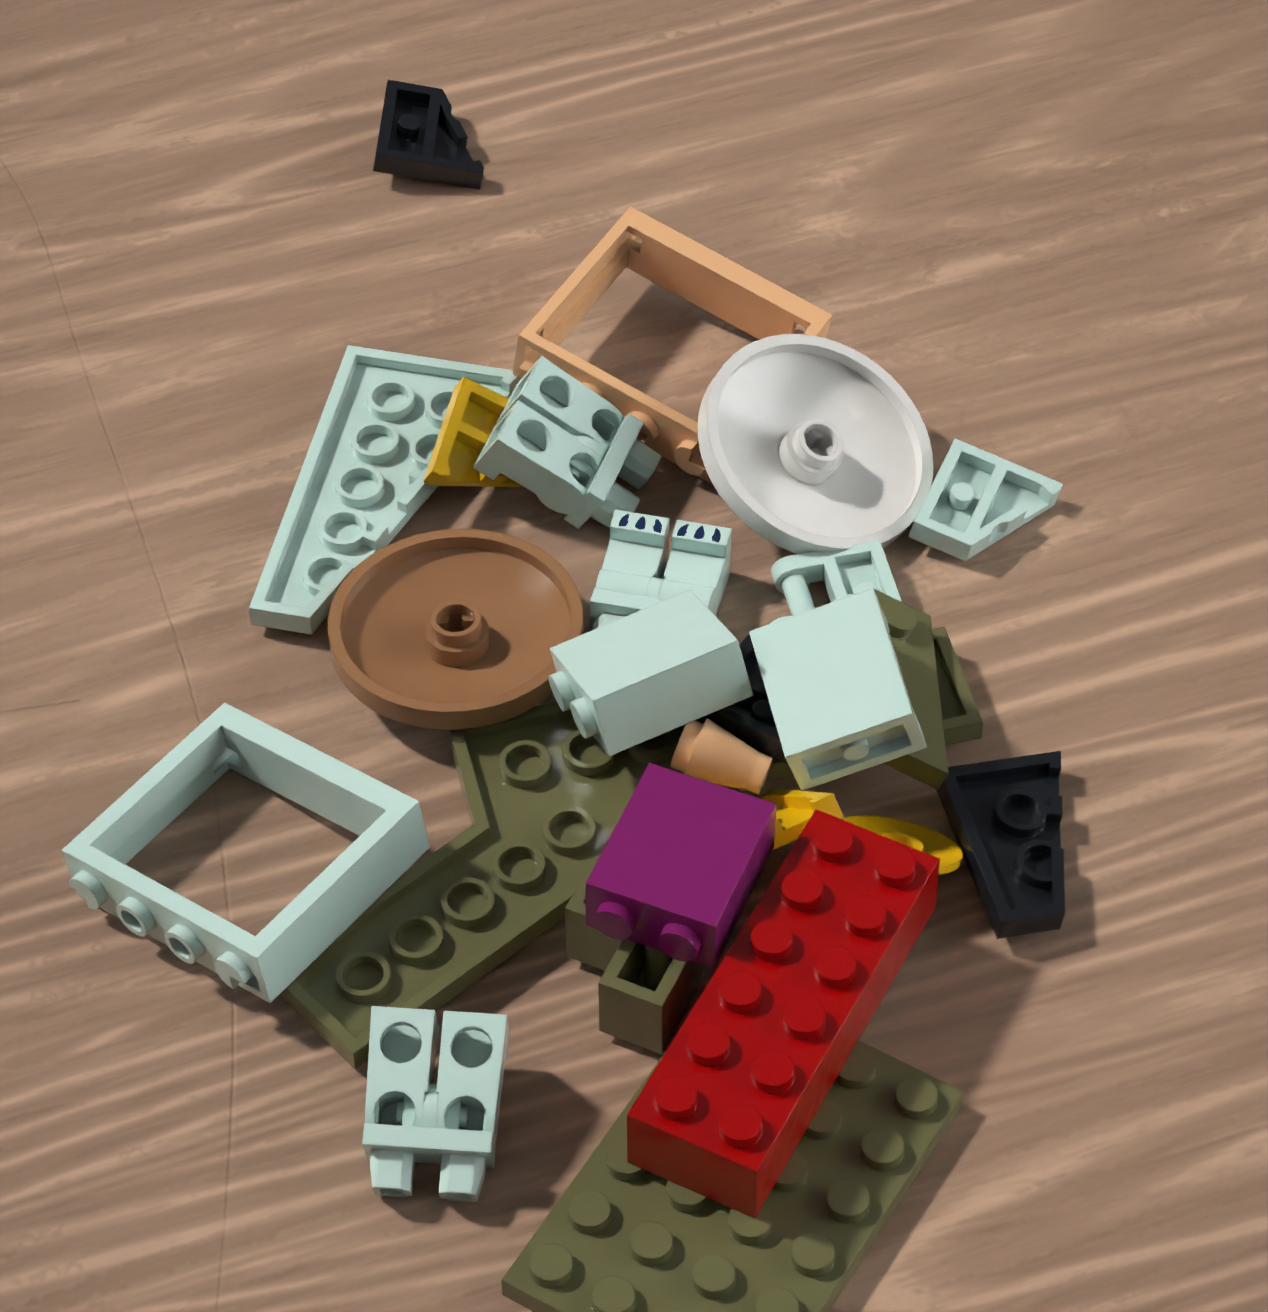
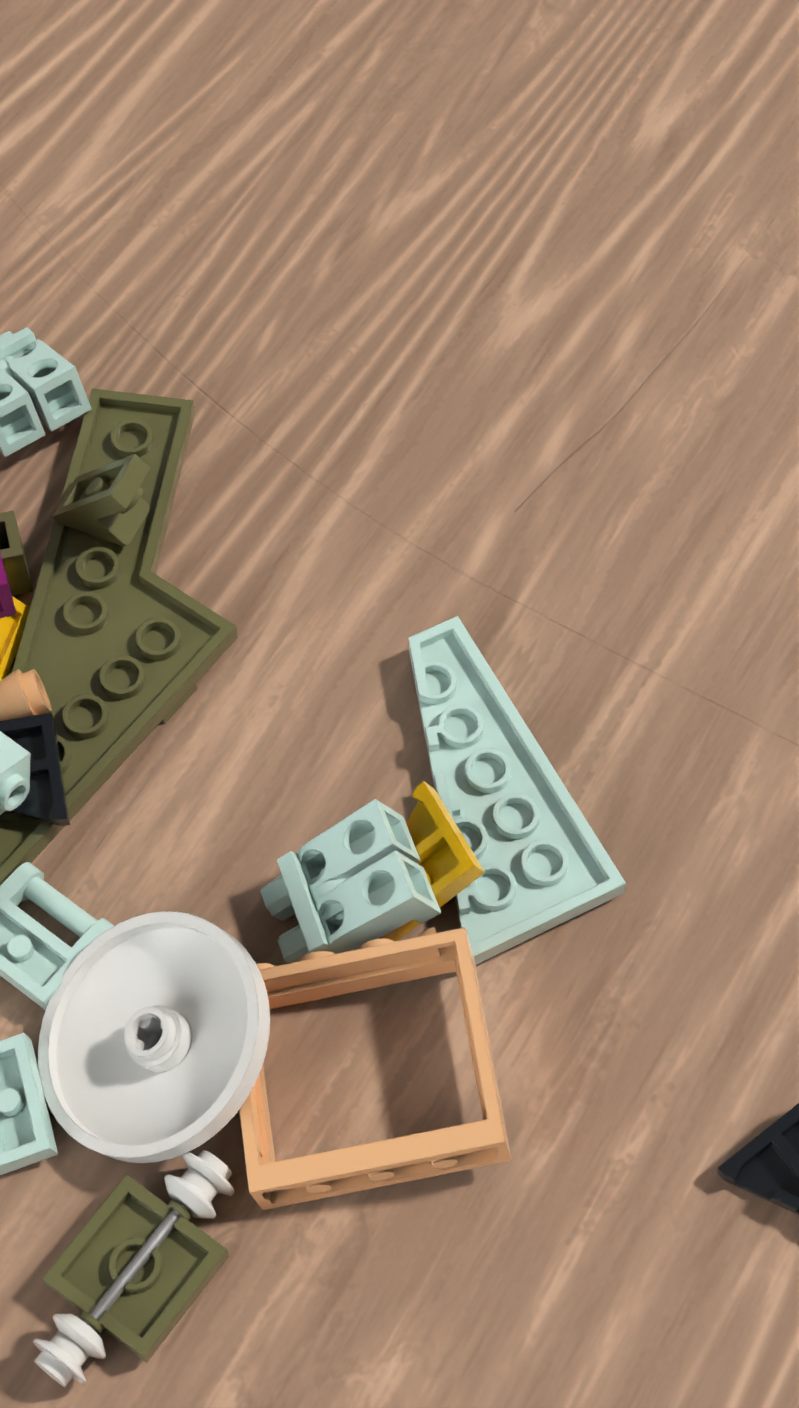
camera: 140 degrees right, 10 degrees up
(265, 964) = (273, 515): light aqua window -> none
(453, 628) = (292, 690): medium nougat dish -> none
(463, 877) = (107, 501): none -> olive slope
(642, 573) = (180, 815): light aqua hips -> none
(649, 673) = (93, 702): light aqua brick -> none
(960, 350) = (135, 1268): none -> olive plate

